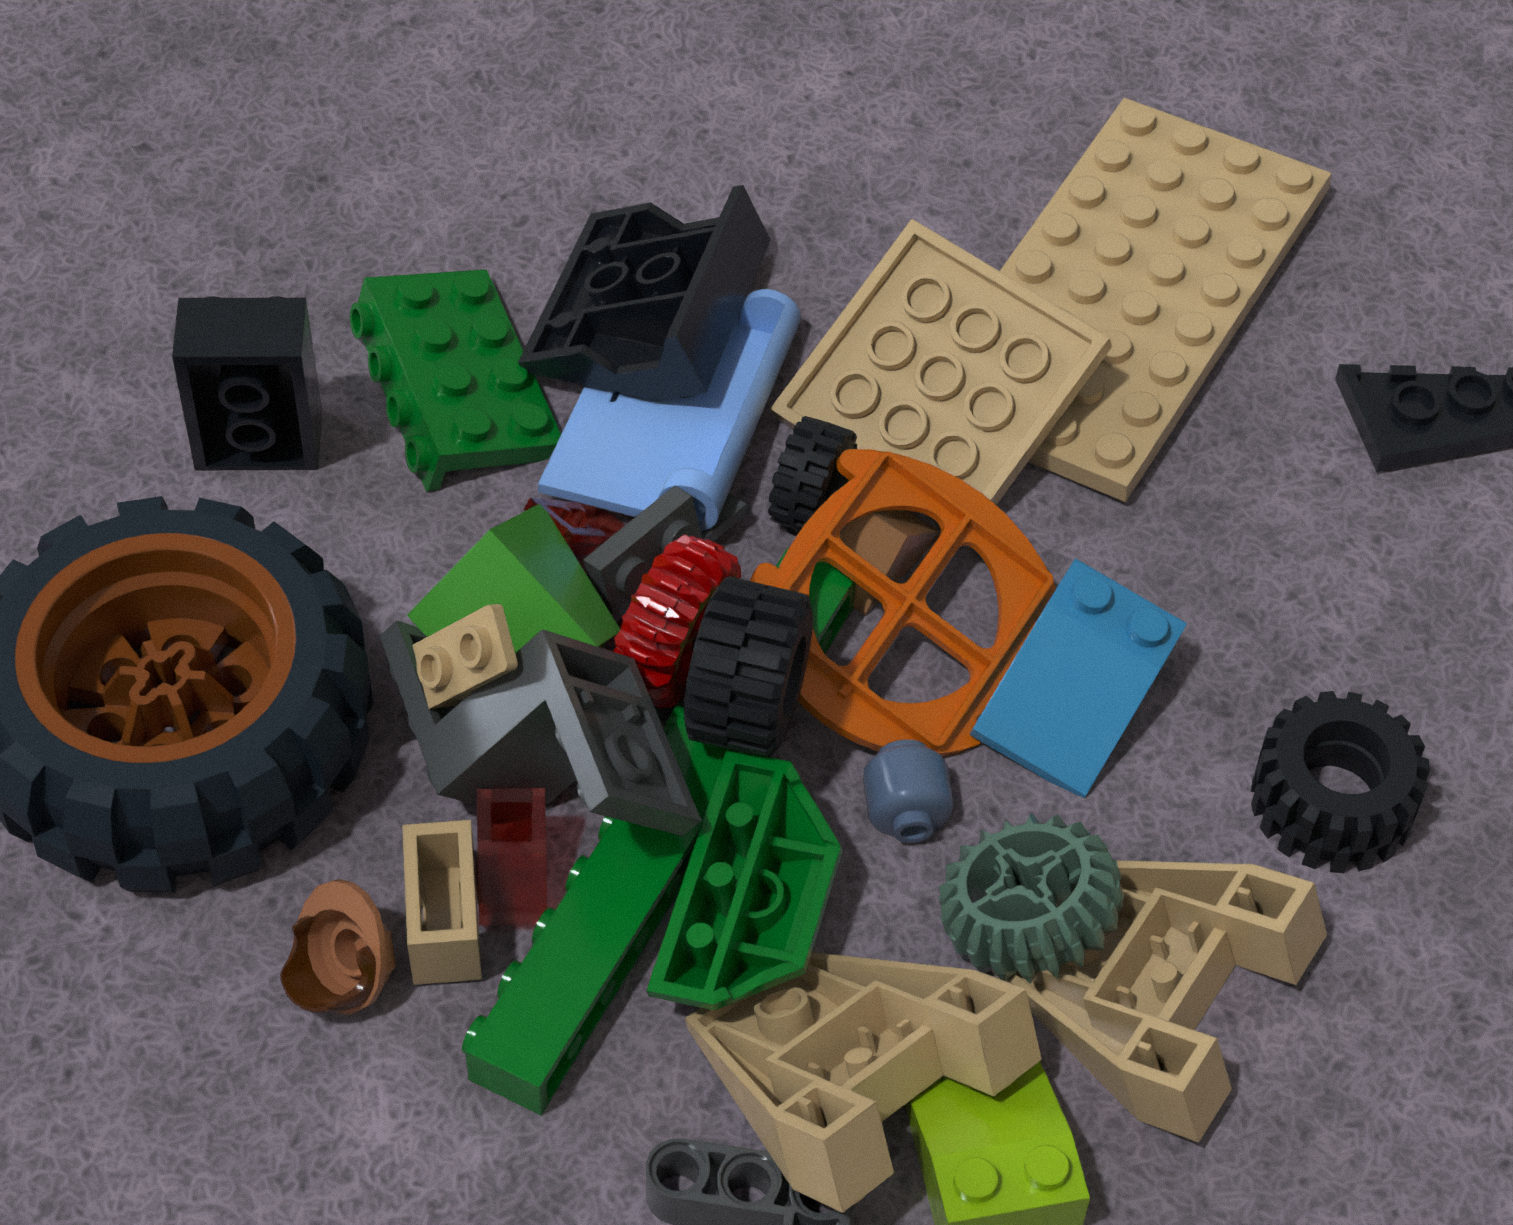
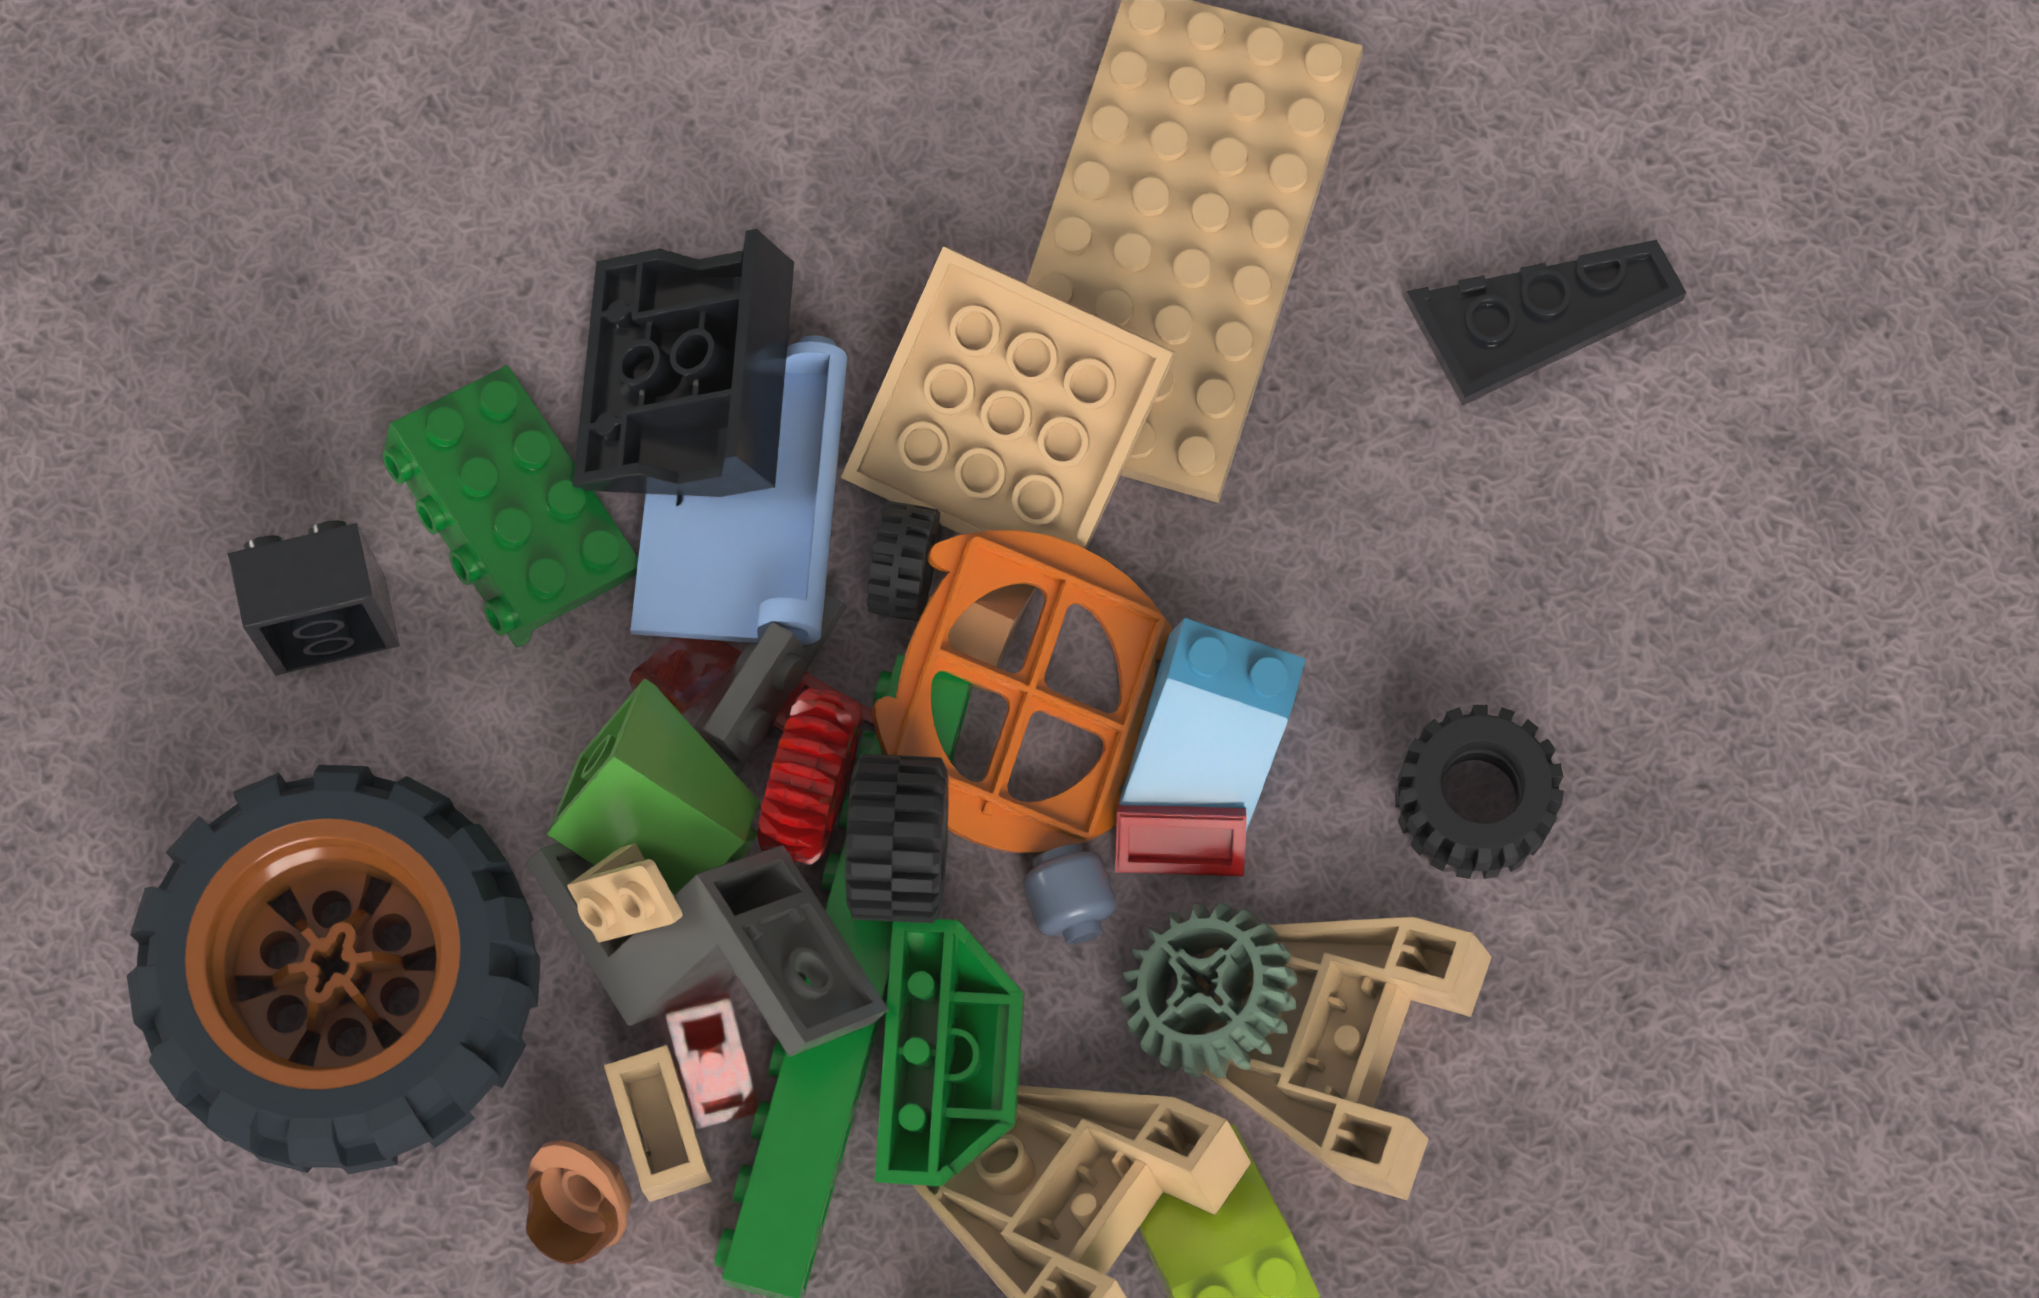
camera: 10 degrees left, 20 degrees up
(1029, 769) = (1180, 840): none -> red tile

